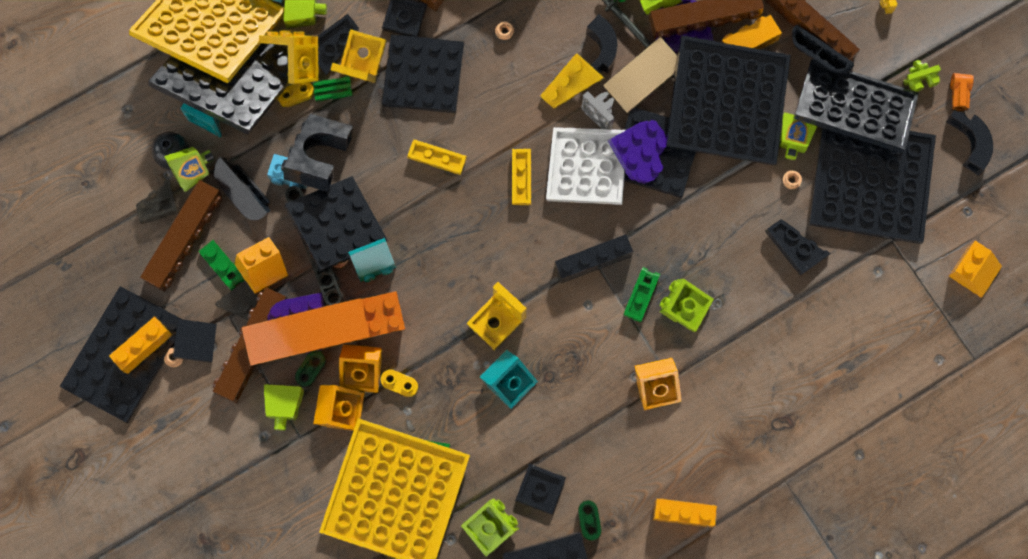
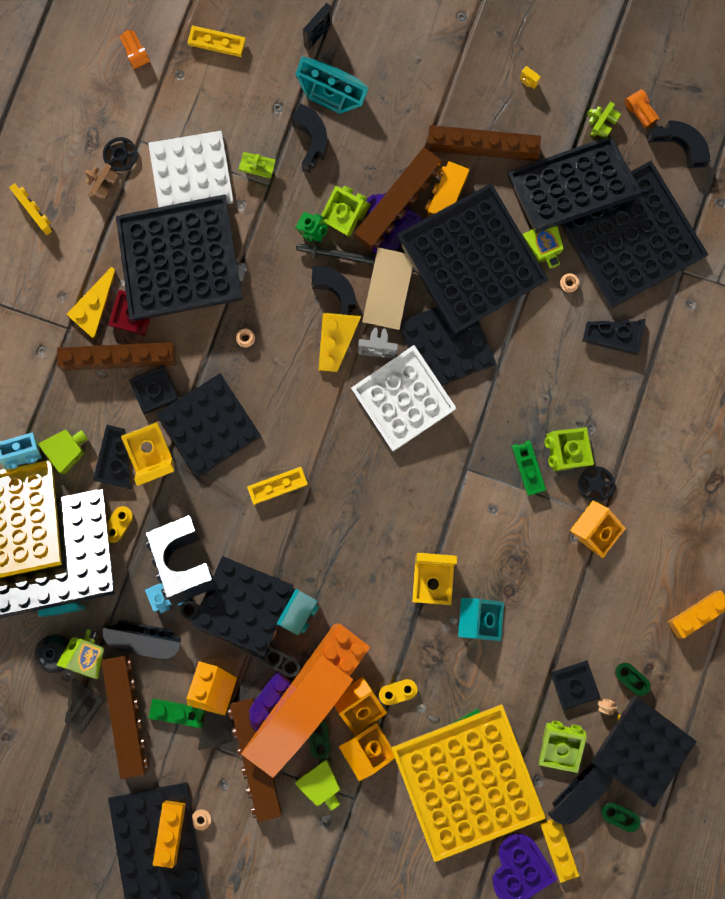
camera: 40 degrees left, 5 degrees up
(194, 340) = (207, 793): black tile -> none
(300, 48) = (97, 487): yellow bracket -> none
(316, 85) = (134, 508): green tile -> none
(521, 176) = (358, 448): yellow plate -> none
(551, 525) = (607, 706): none -> light nougat plate
(593, 258) = (469, 470): black brick -> none
(640, 150) = (436, 355): dark purple plate -> none
(686, 349) = (596, 484): none -> black wheel
(820, 51) = (511, 161): black brick -> none

